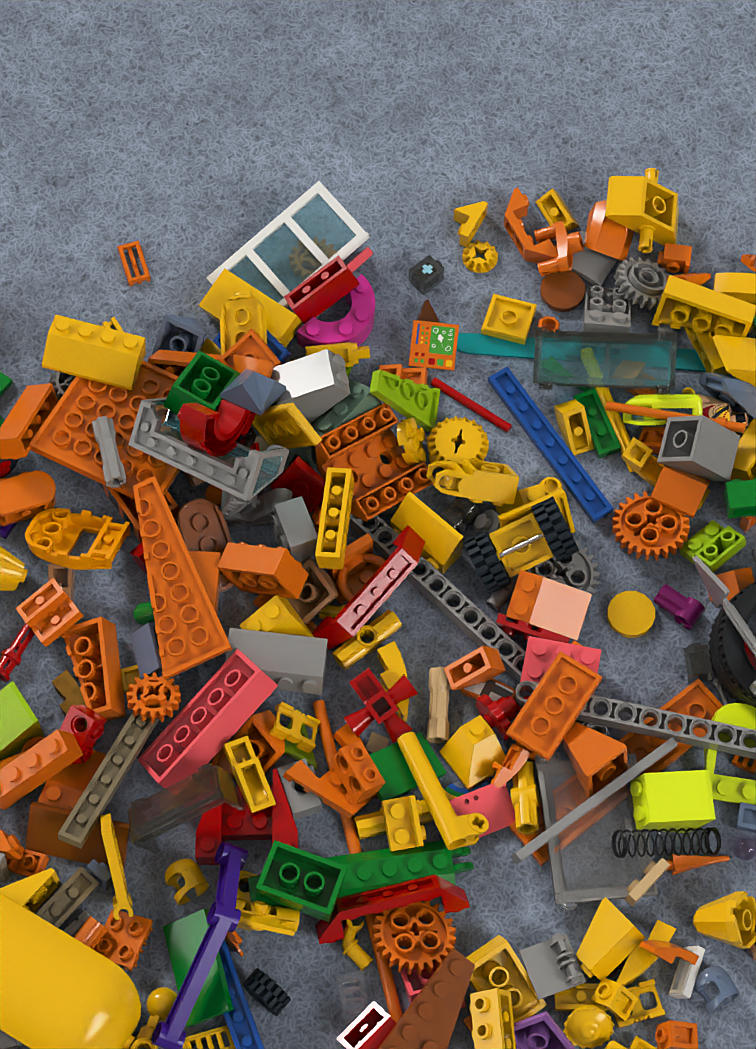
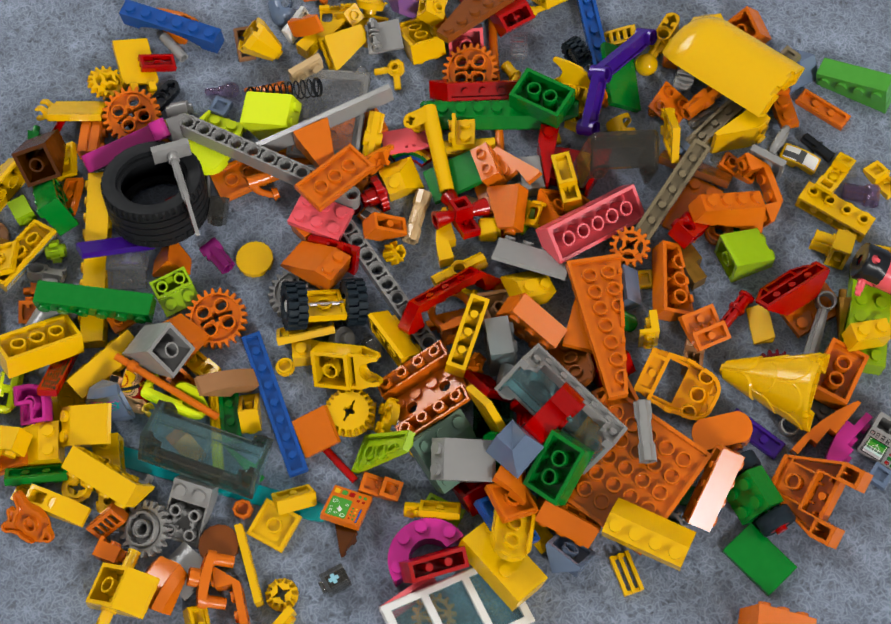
camera: 165 degrees left, 0 degrees up
(116, 590) = (649, 335): none -> yellow bracket
(319, 723) = (509, 206): none -> orange slope
(341, 702) = (489, 230): none -> yellow head
(455, 646) = (394, 253): none -> yellow gear
(490, 414) = (316, 431): none -> orange tile
(495, 345) = (294, 499): none -> yellow slope
(522, 273) = (249, 565): none -> yellow tile
(523, 924) = (395, 69): none -> yellow piece
(609, 440) = (226, 382): none -> medium nougat slope
(655, 701) = (259, 179): none -> orange plant

